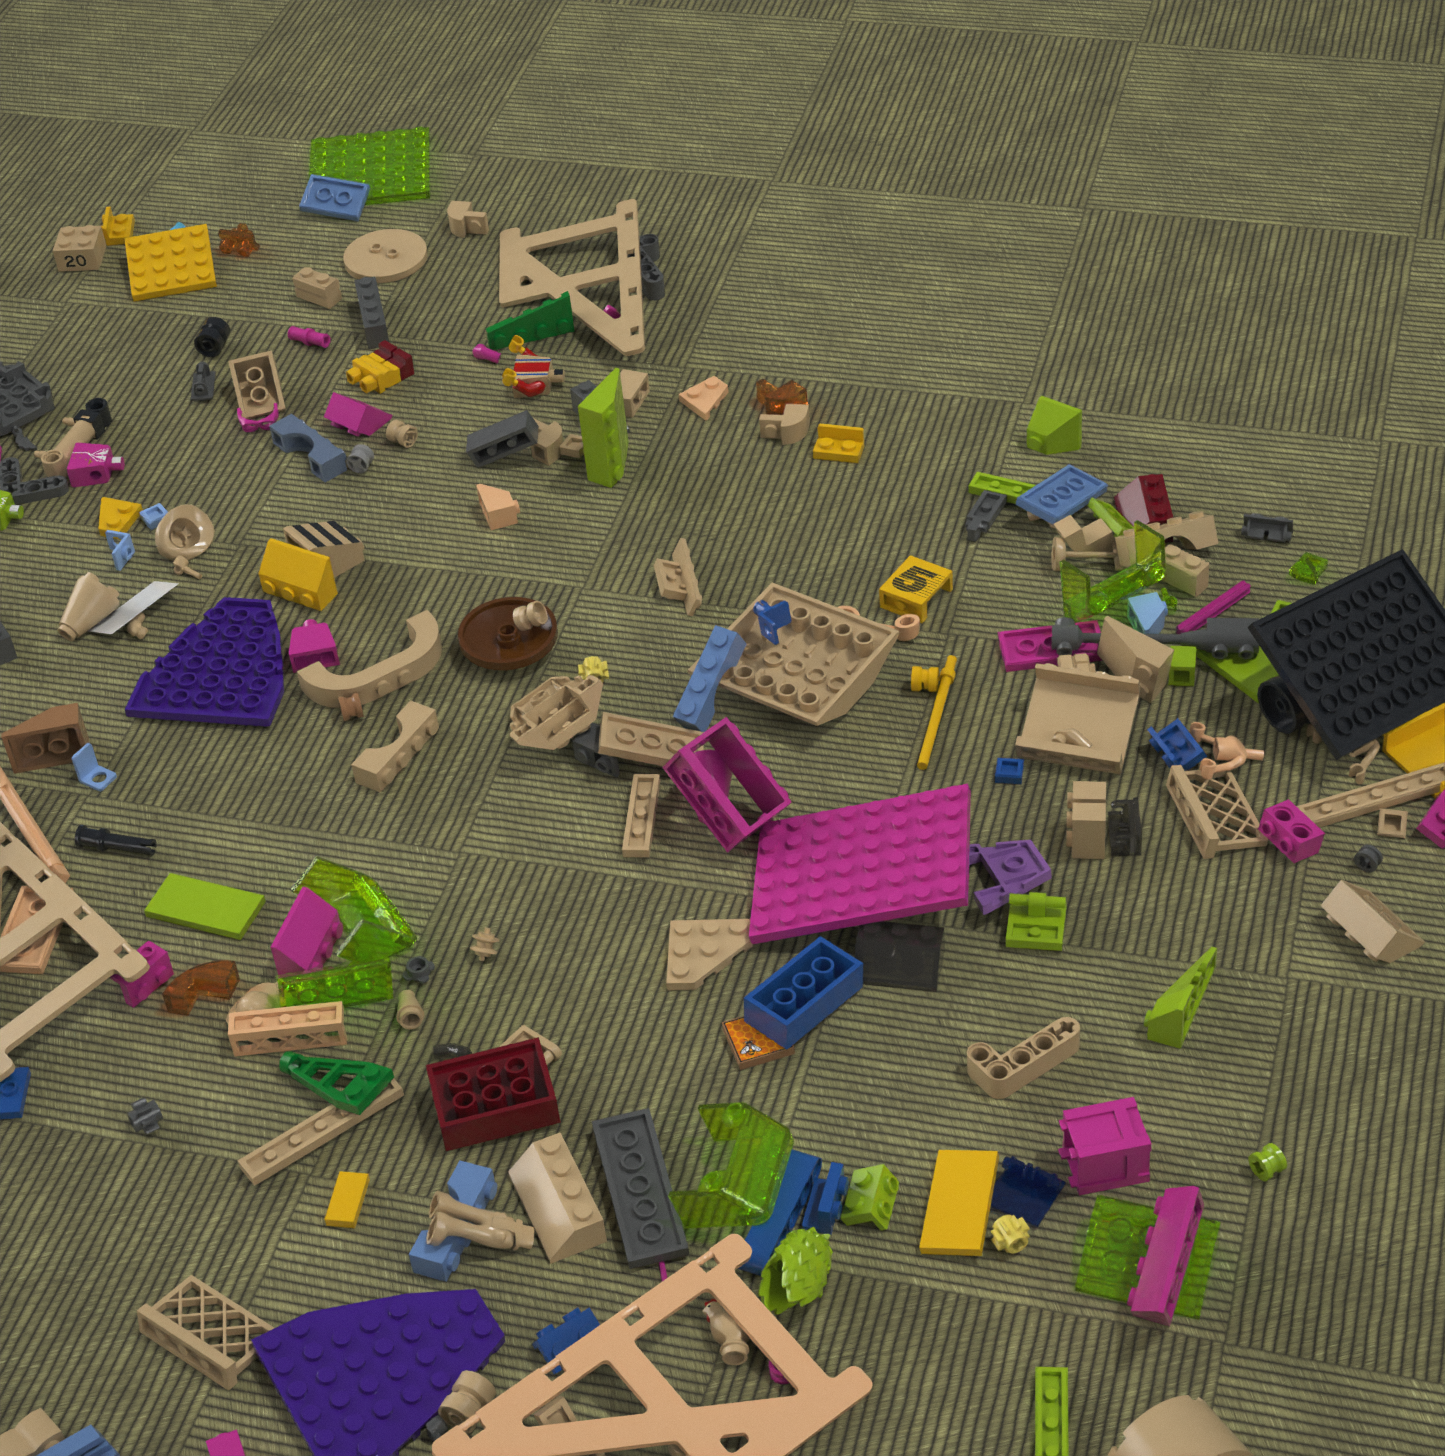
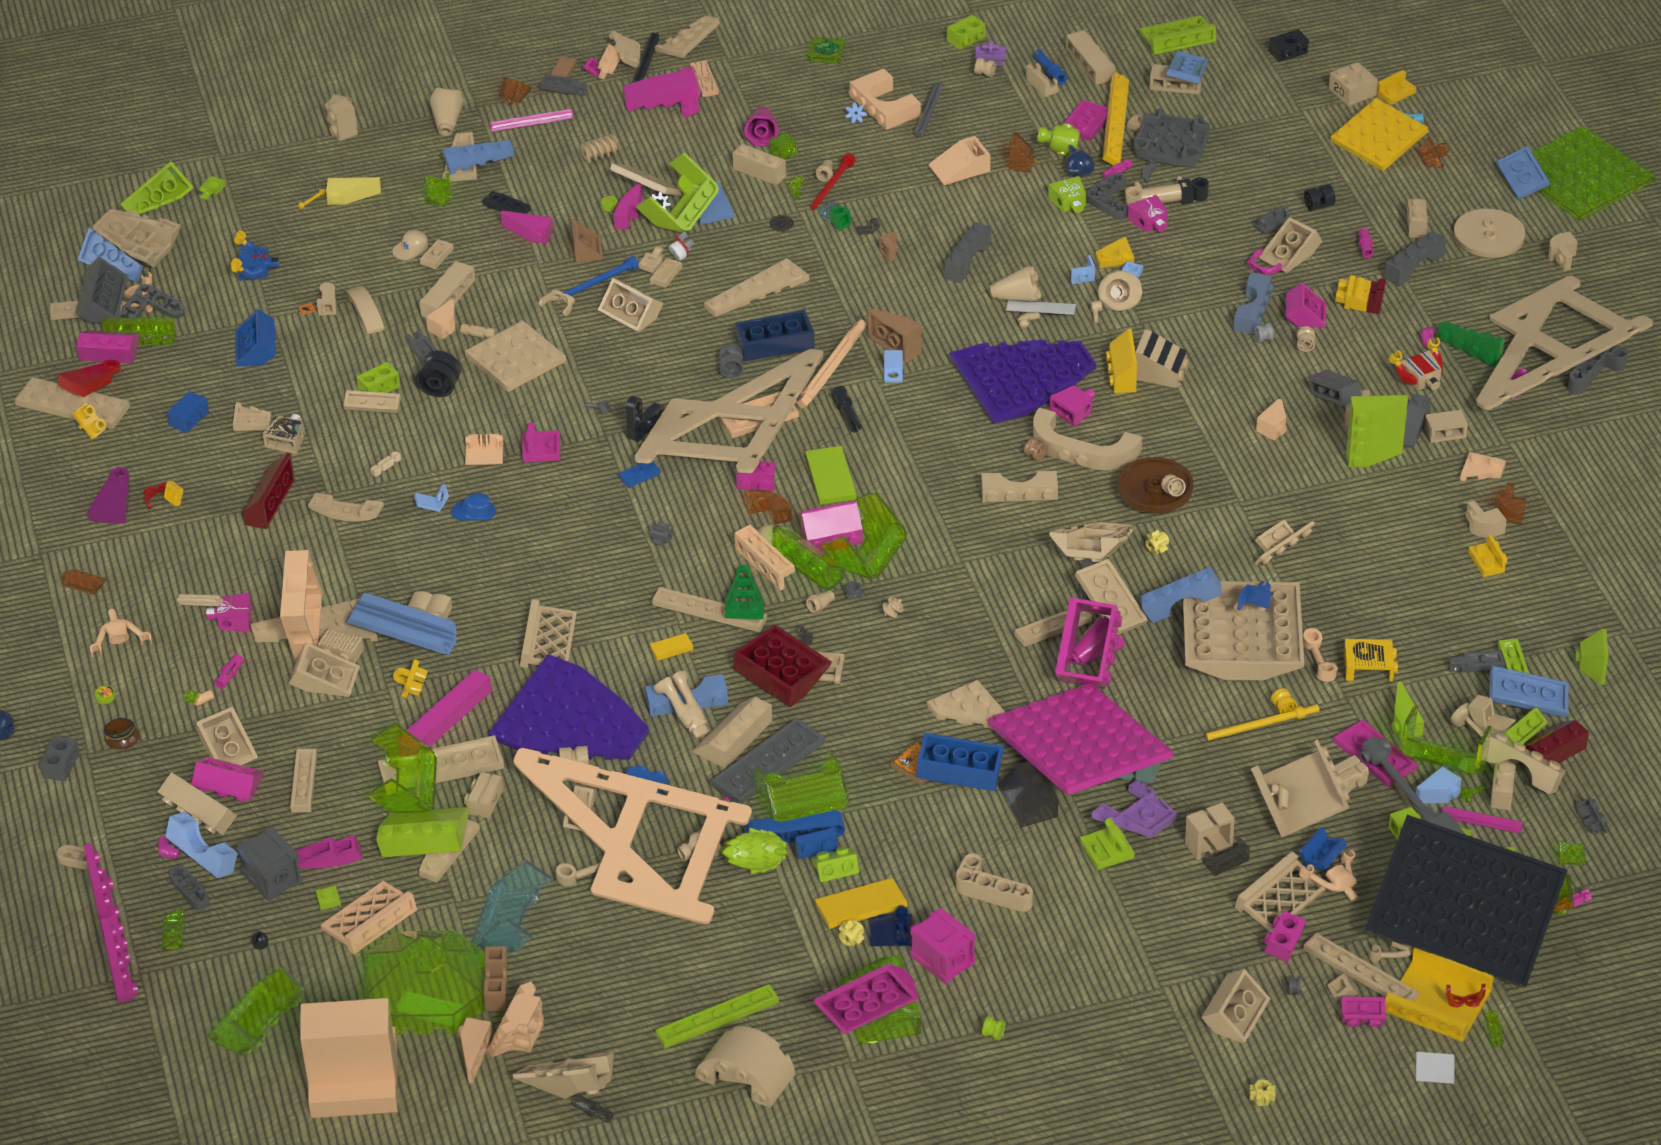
camera: 55 degrees right, 0 degrees up
(1009, 771) = (1237, 781): blue tile -> none
(1019, 597) = (1402, 709): none -> lime slope
(1136, 656) = (1377, 797): tan slope -> none
(1177, 1007) = (1089, 940): lime wedge -> none

